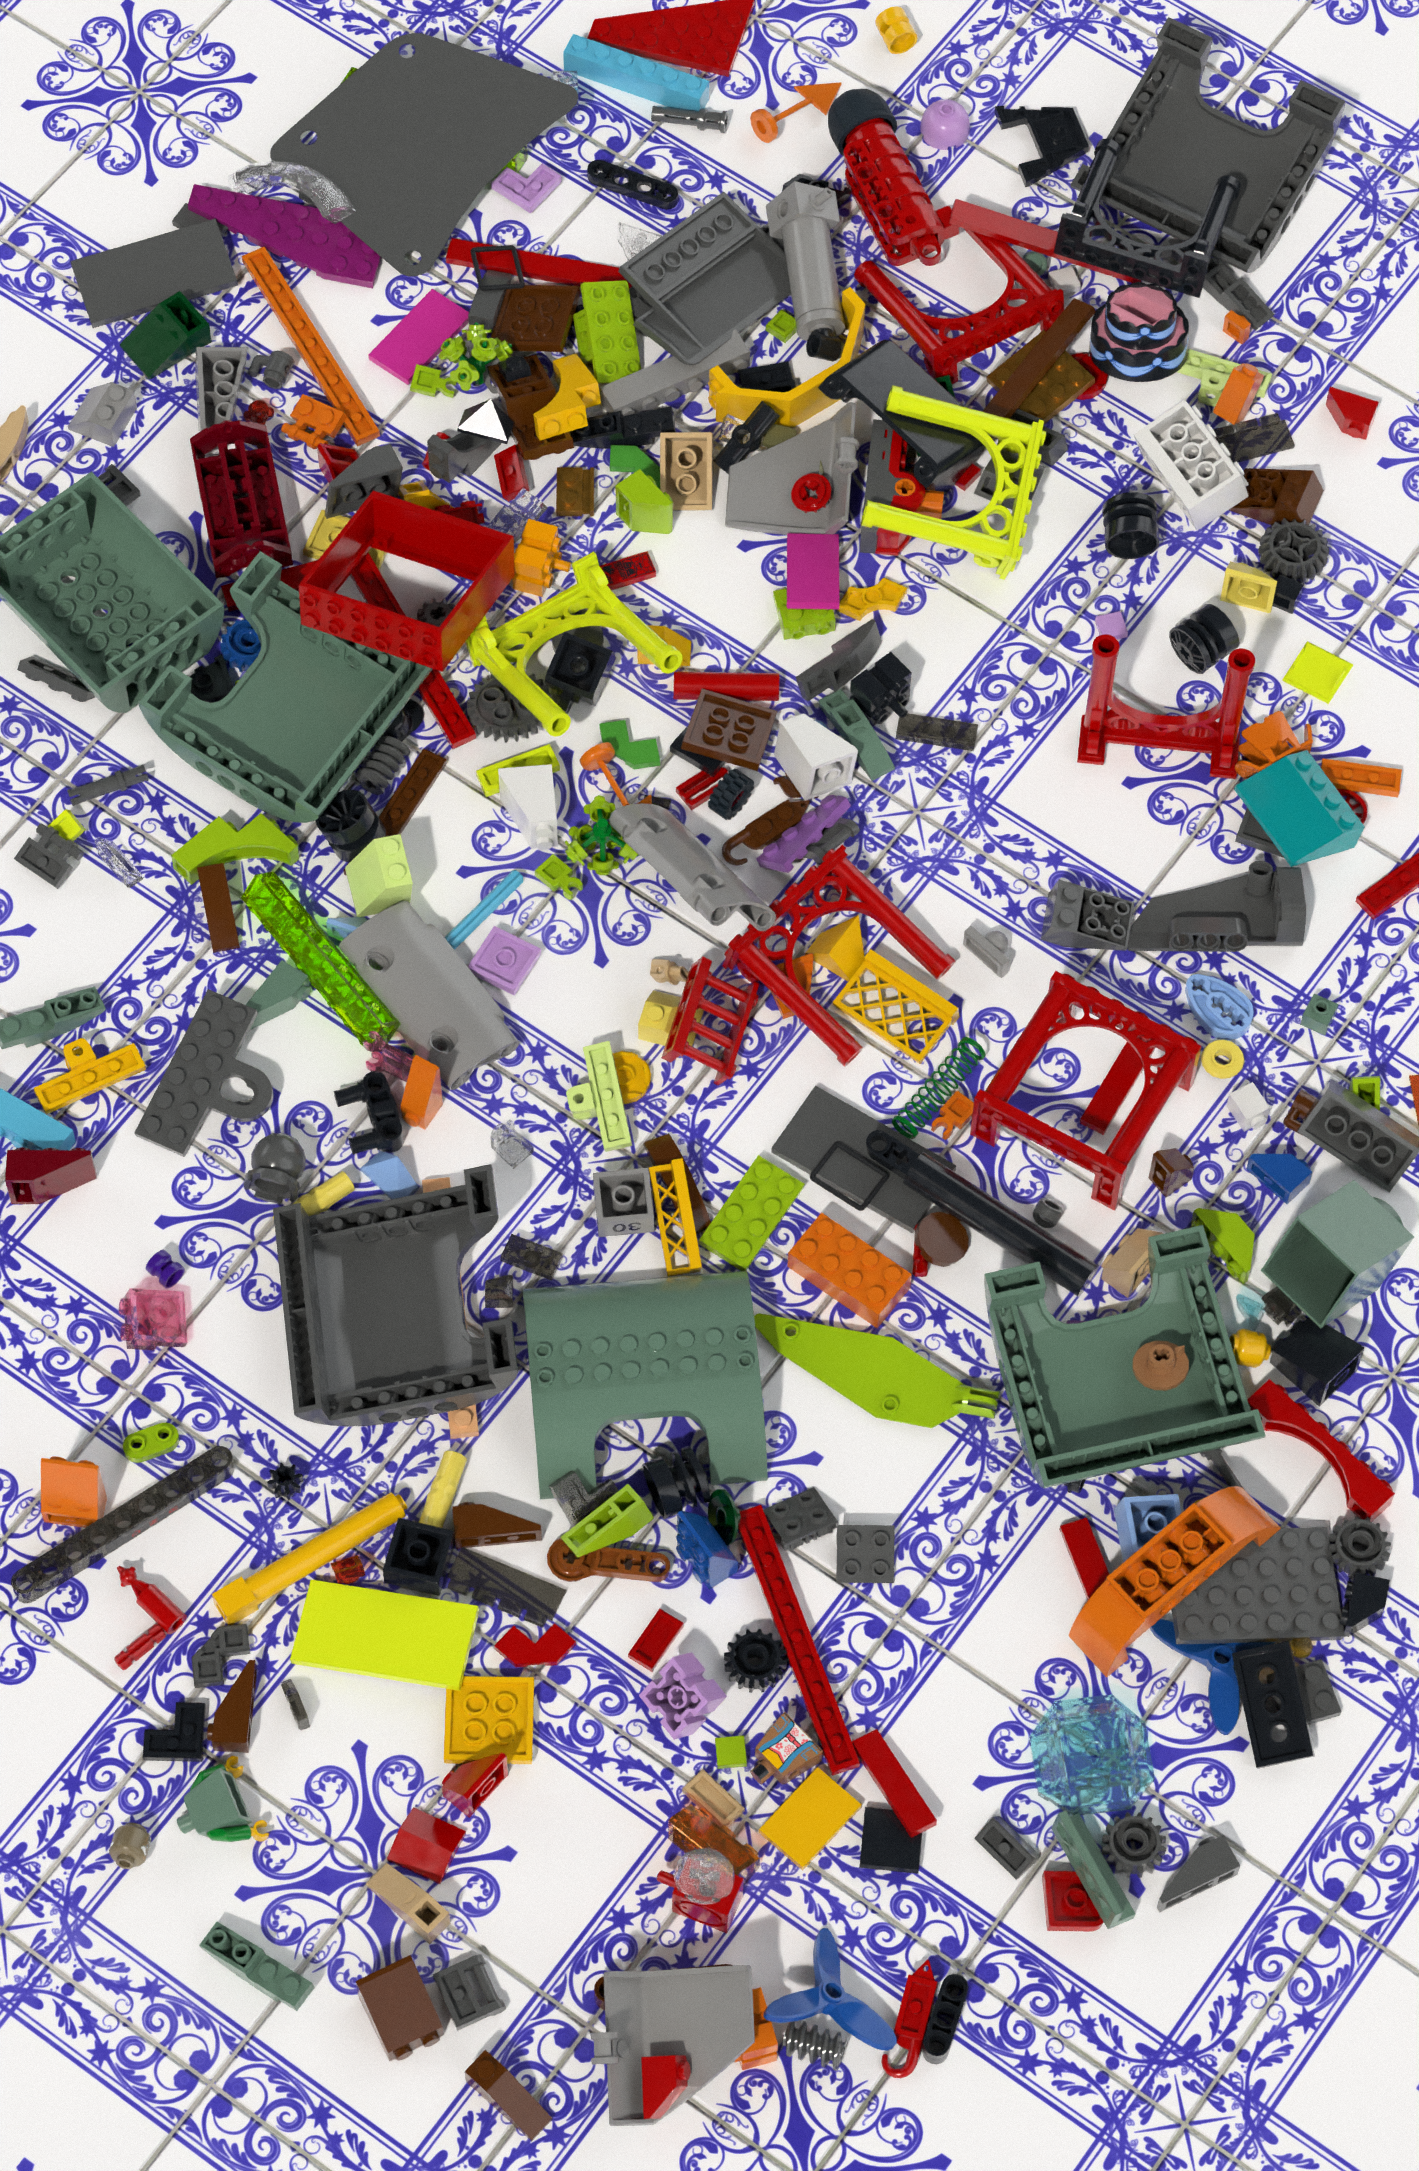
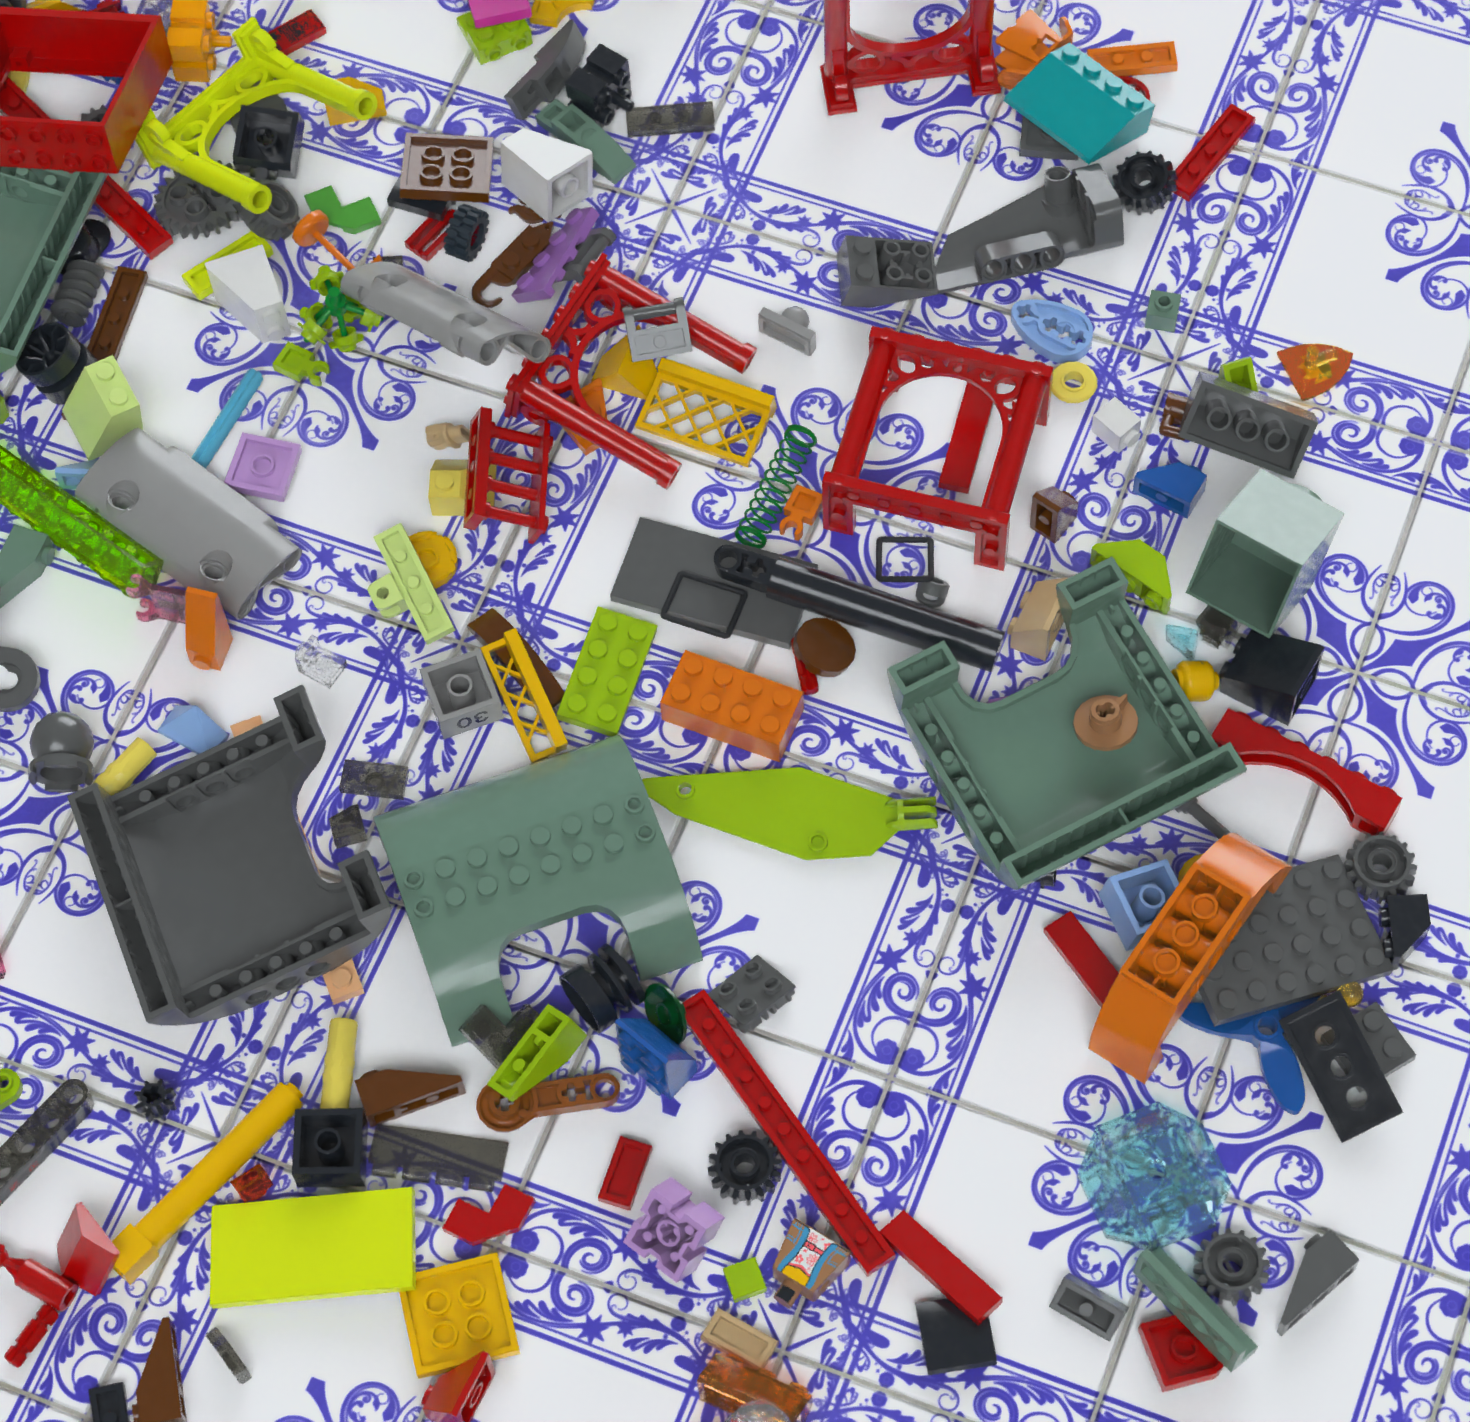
camera: 10 degrees left, 0 degrees up
(200, 1590) = (86, 1251): none -> red slope
(224, 1642) = (127, 1305): dark grey tile -> none
(381, 1111) = (165, 660): black piece -> none
(574, 740) = (278, 219): none -> dark grey gear
(732, 684) = (447, 120): red brick -> none
(810, 1818) = (855, 1333): yellow tile -> none
(865, 1553) = (835, 1014): dark grey hinge -> none
(869, 933) = (658, 340): none -> plate
(1025, 1197) = (886, 539): none -> black piece
(1334, 881) = (1139, 169): none -> black gear

